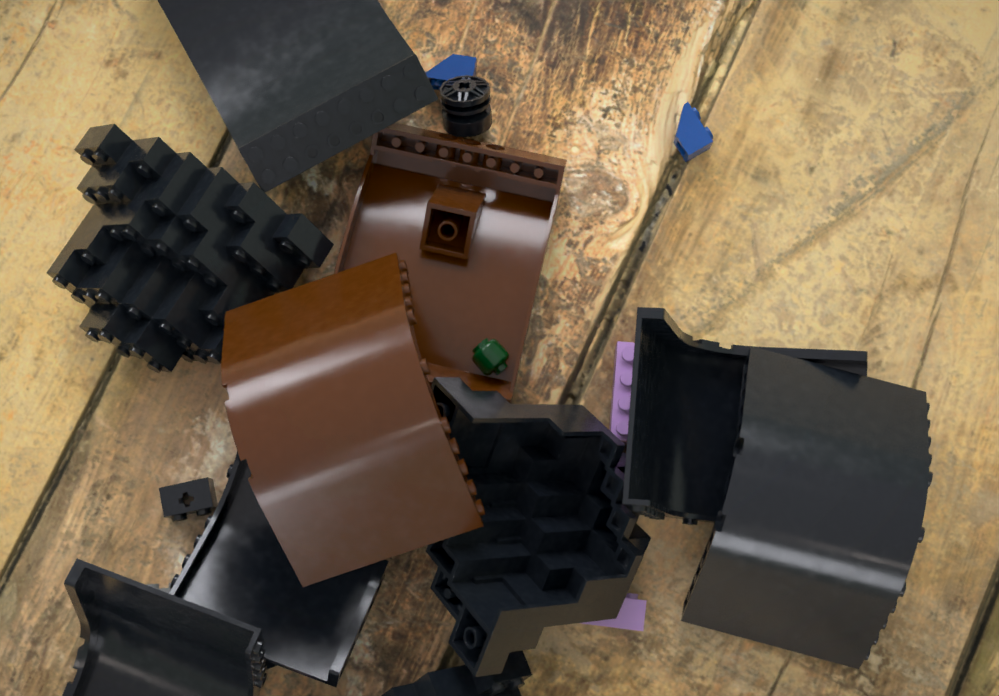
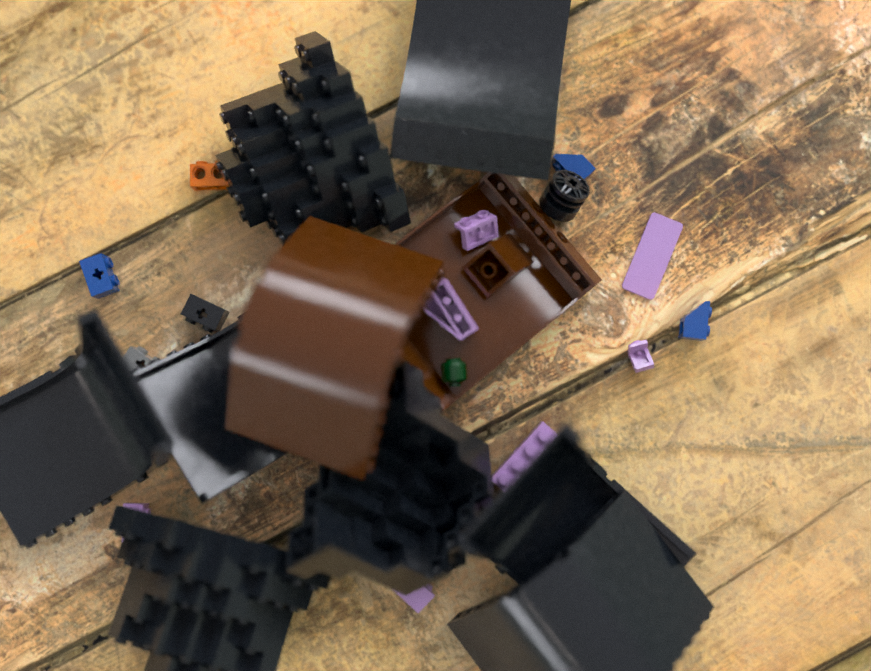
camera: 40 degrees right, 5 degrees up
(33, 542) = (92, 271): none -> blue brick
(92, 360) = (210, 181): none -> orange brick
(405, 200) = (477, 229): none -> lavender bracket
(442, 300) = (450, 311): none -> lavender wedge
(598, 102) = (652, 256): none -> lavender piece
(662, 206) = (640, 356): none -> lavender bracket

